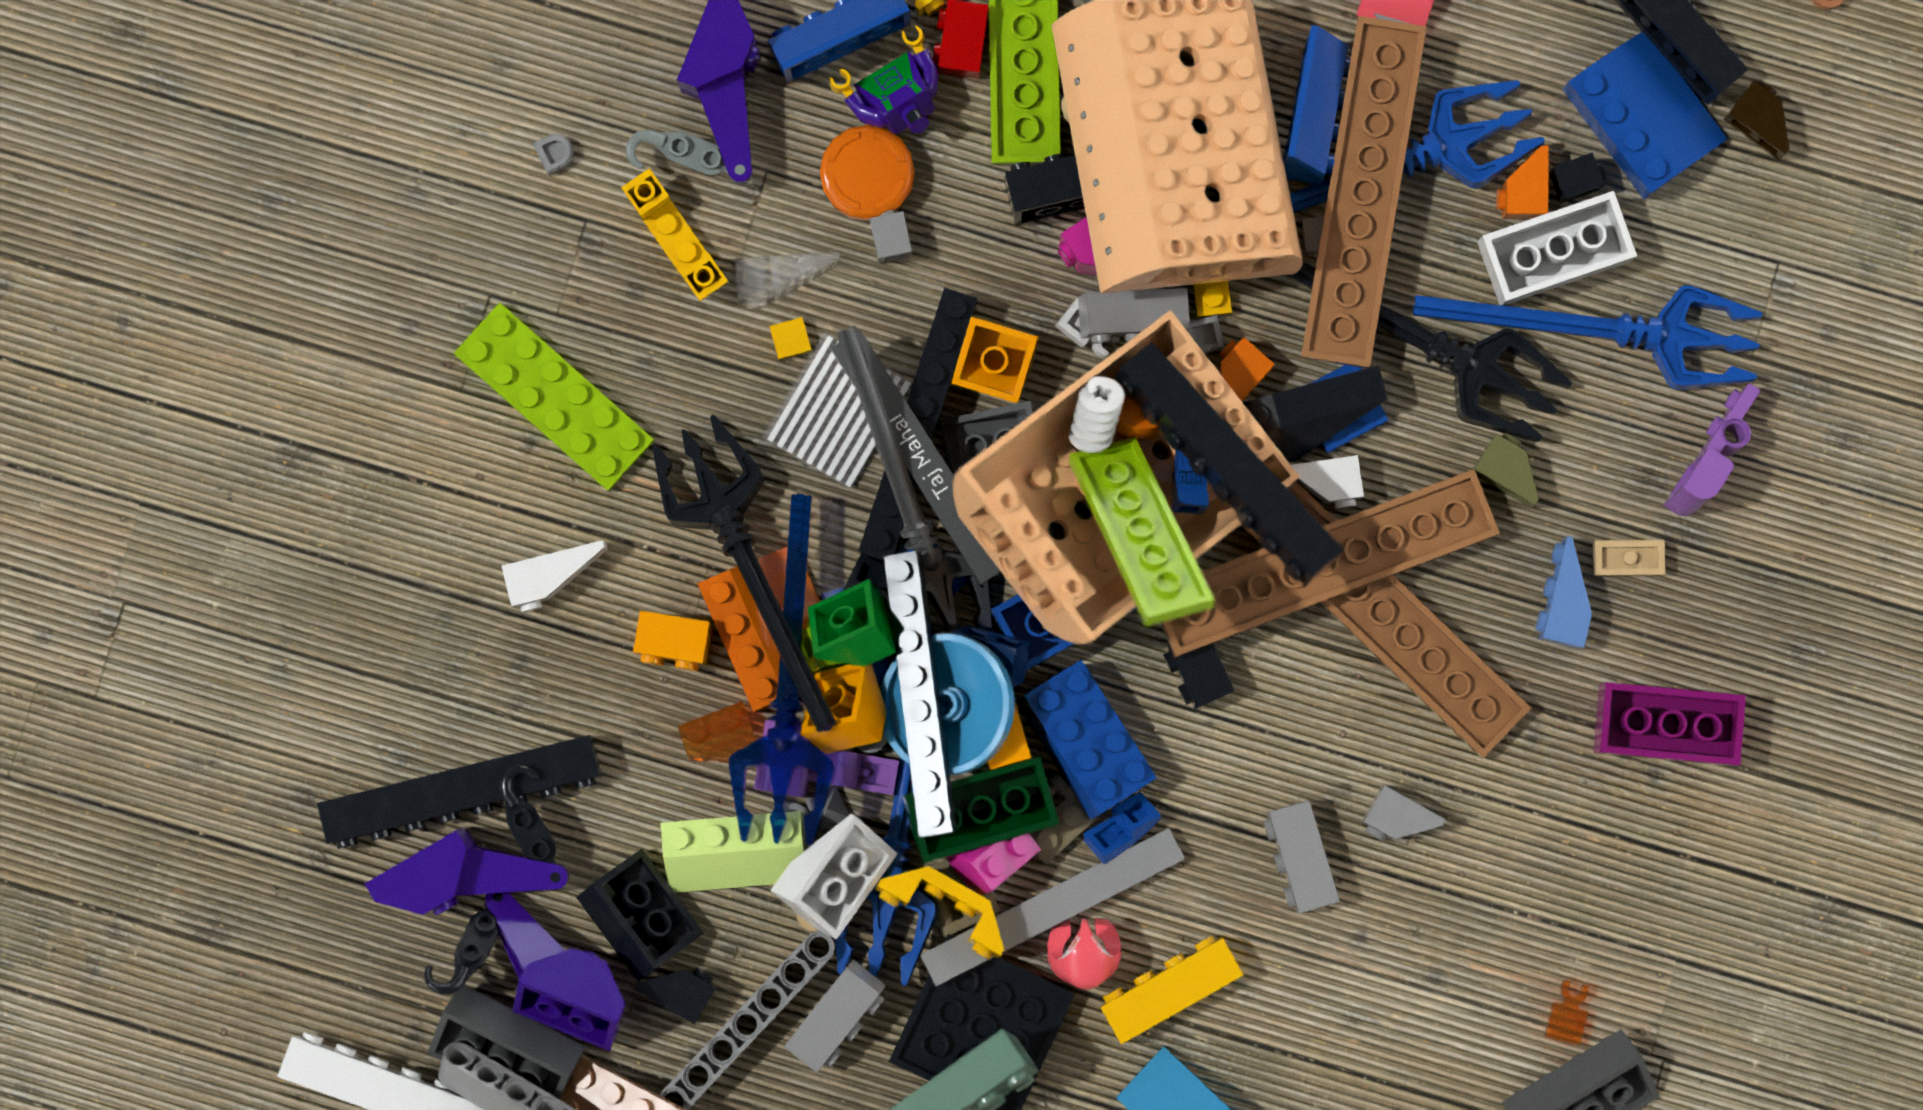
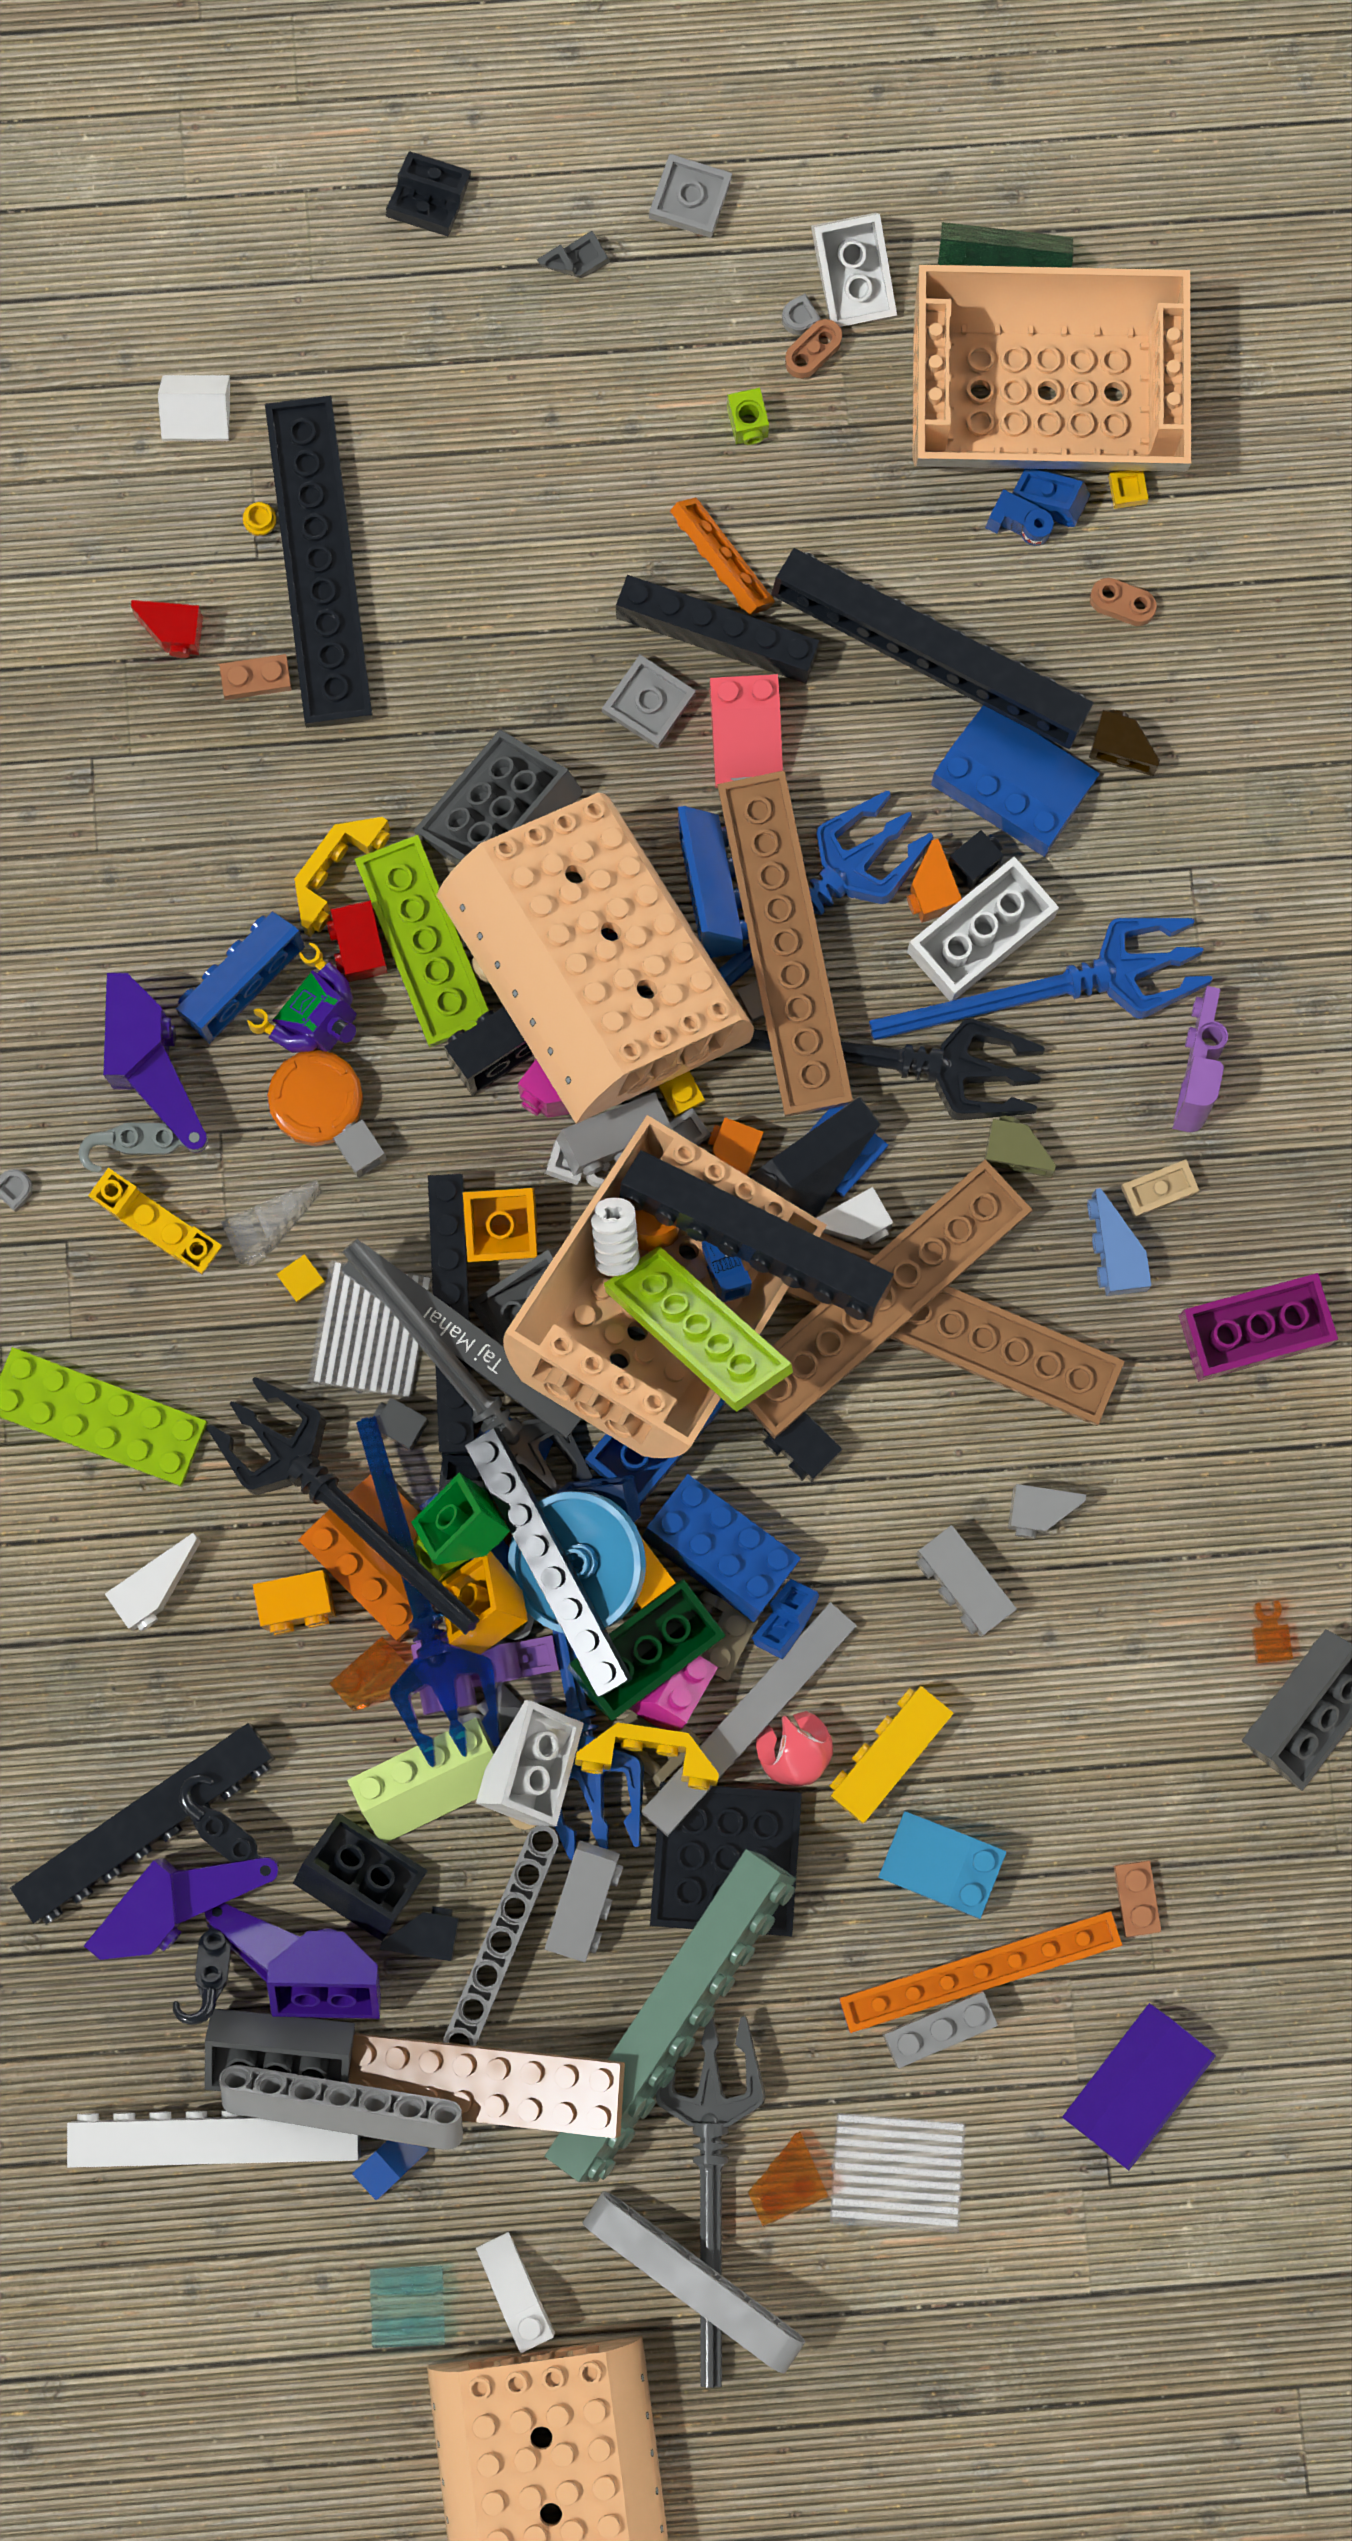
camera: 25 degrees left, 5 degrees down
(832, 510) = (400, 1423): none -> dark grey brick

